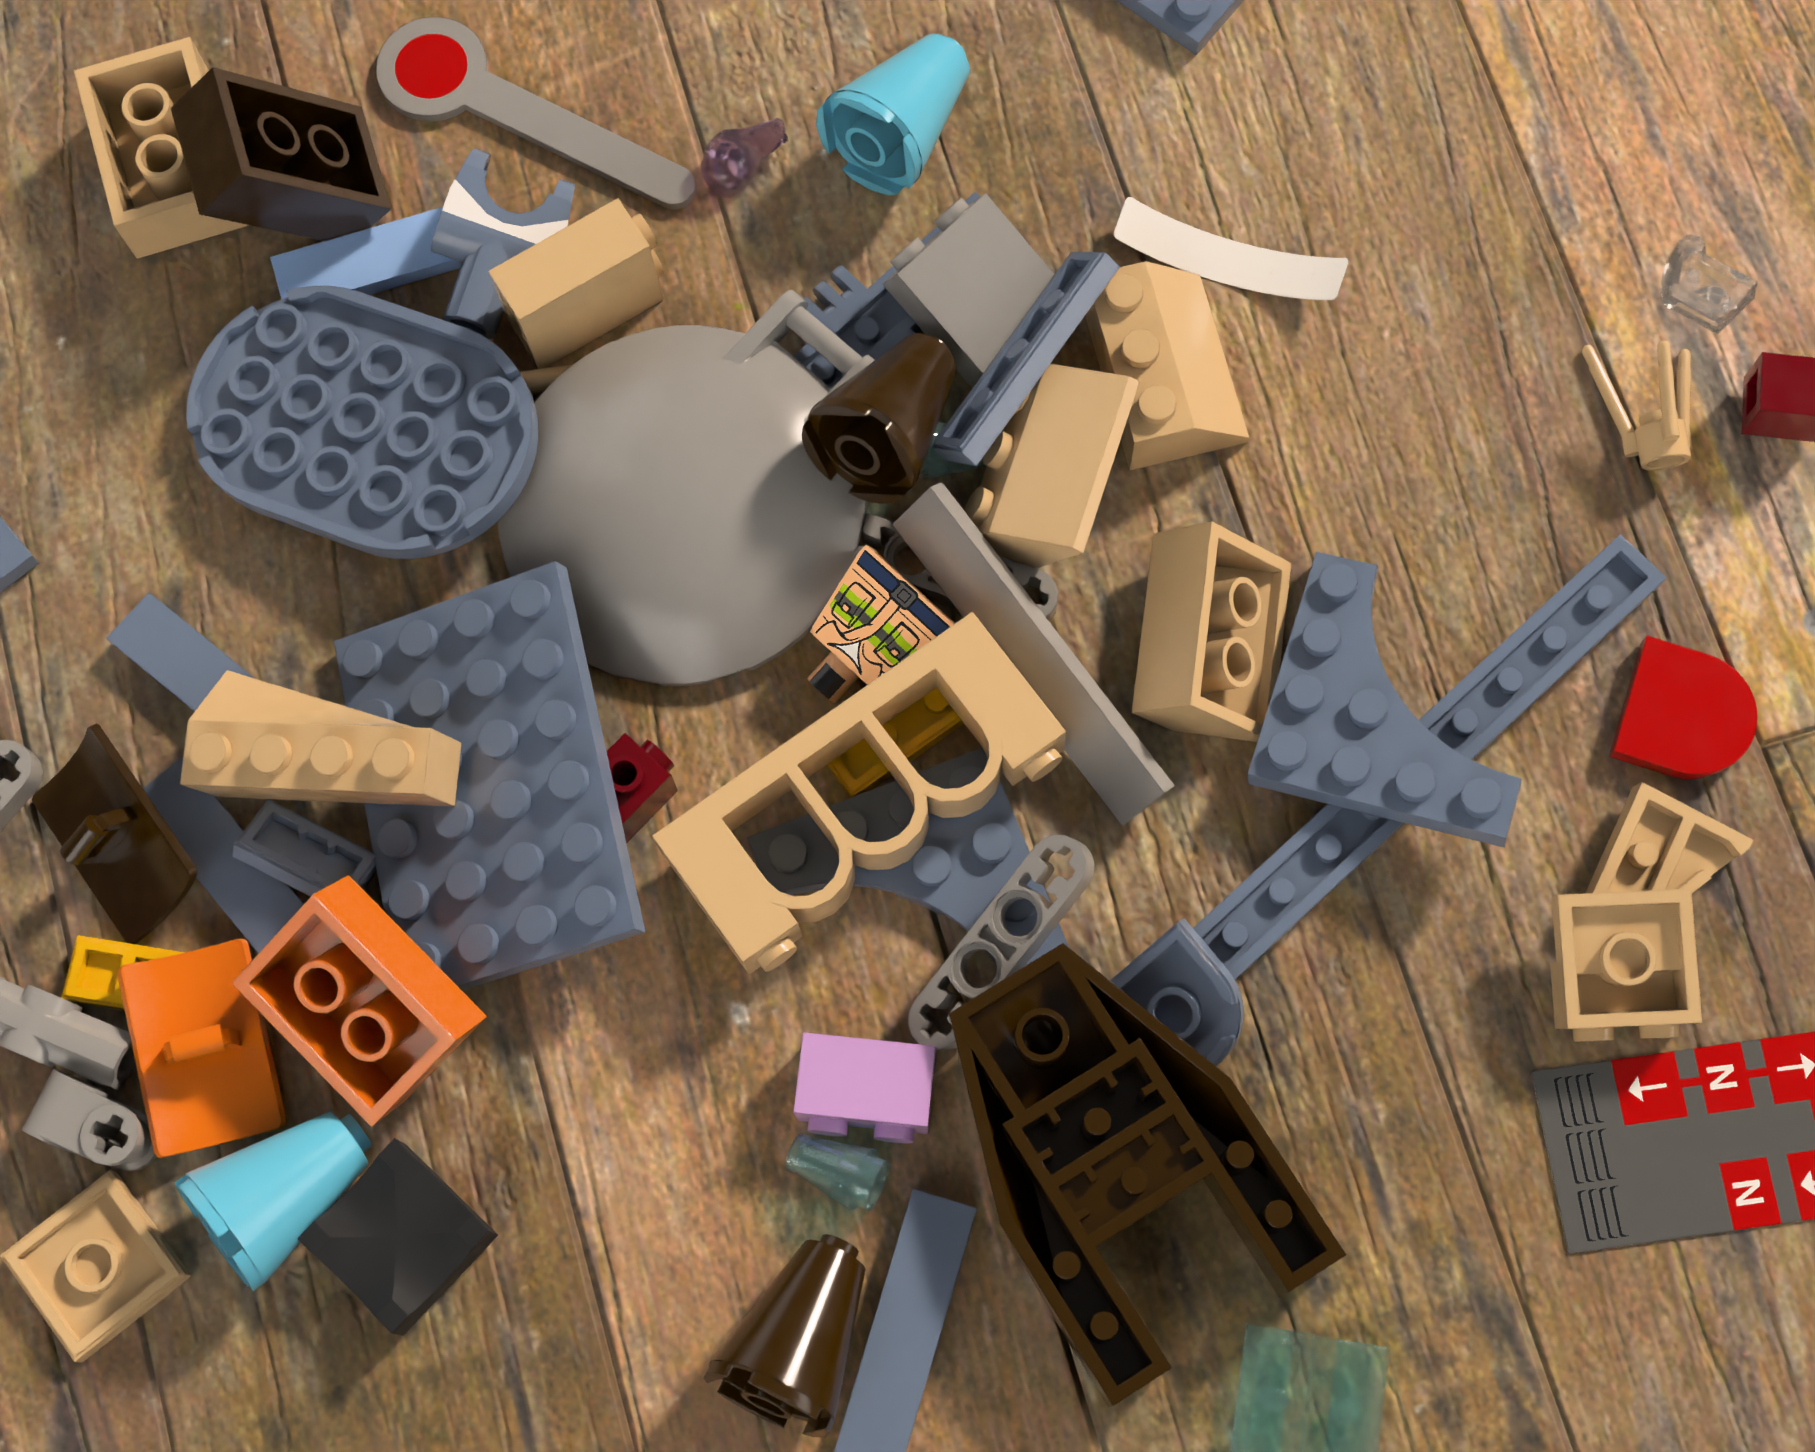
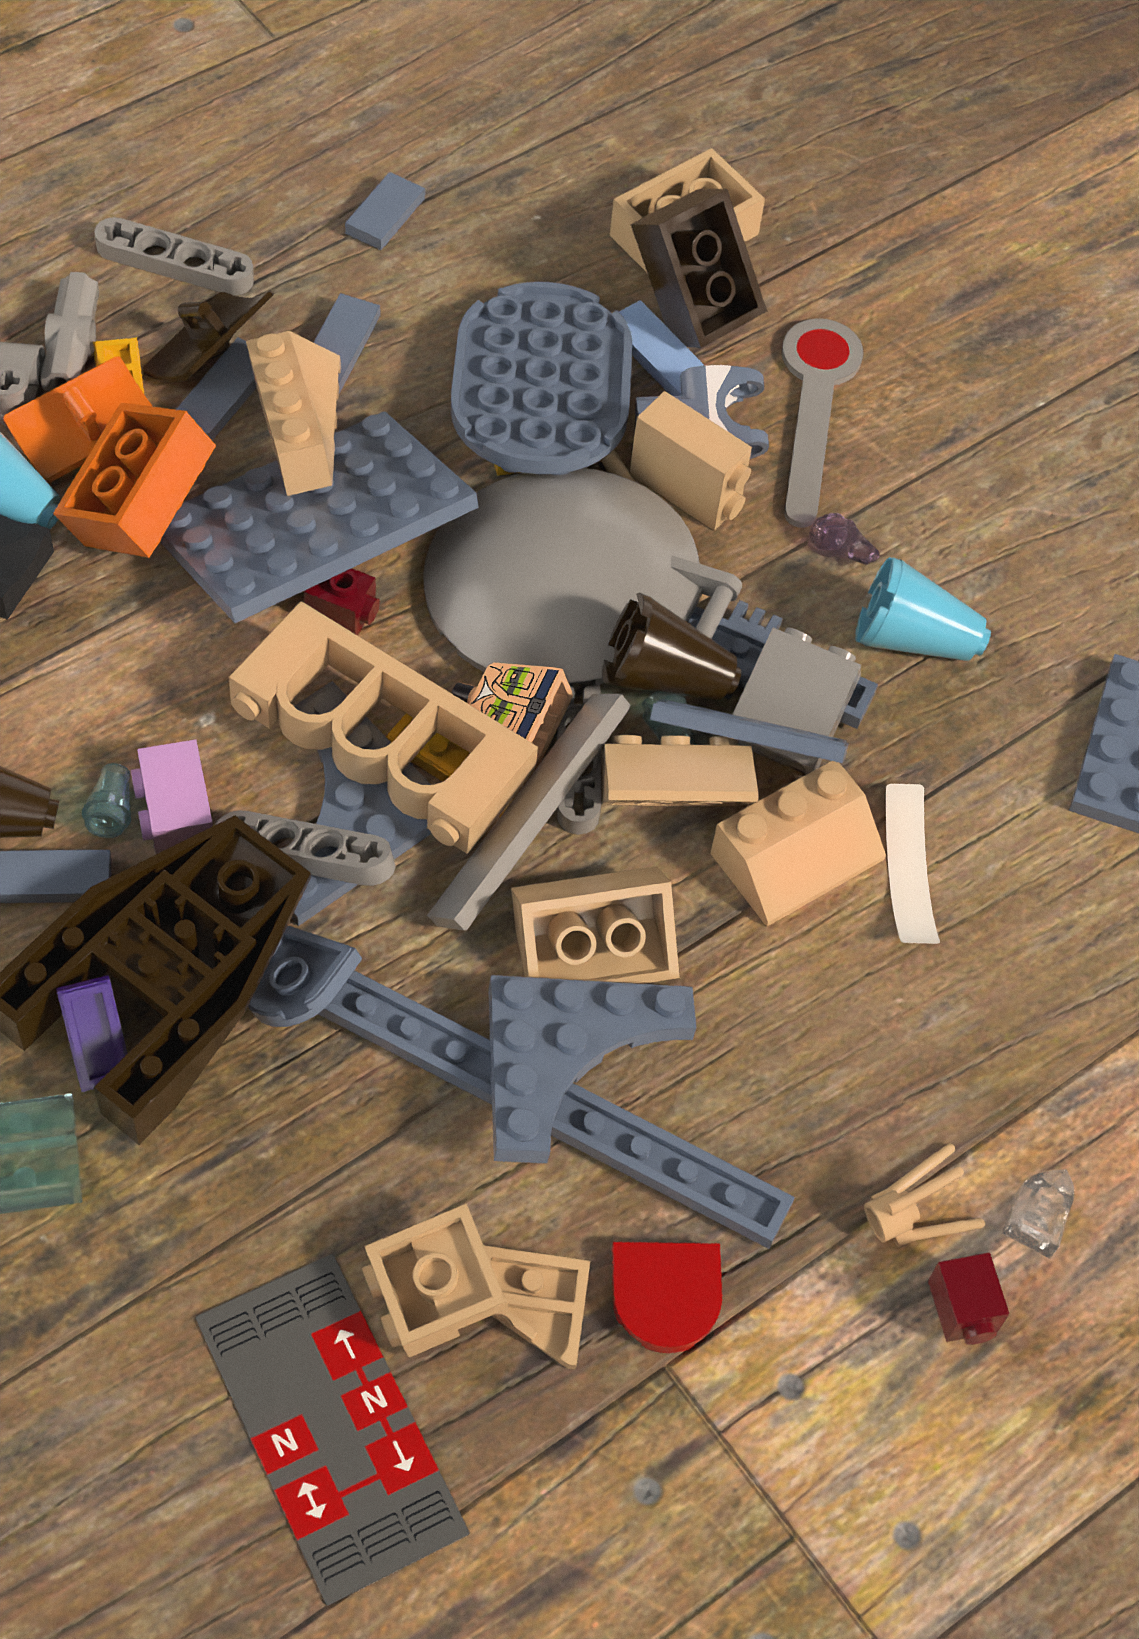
camera: 60 degrees right, 15 degrees down
(301, 851) = (233, 432): sand blue plate -> none
(1188, 1273) = (92, 1029): none -> tile

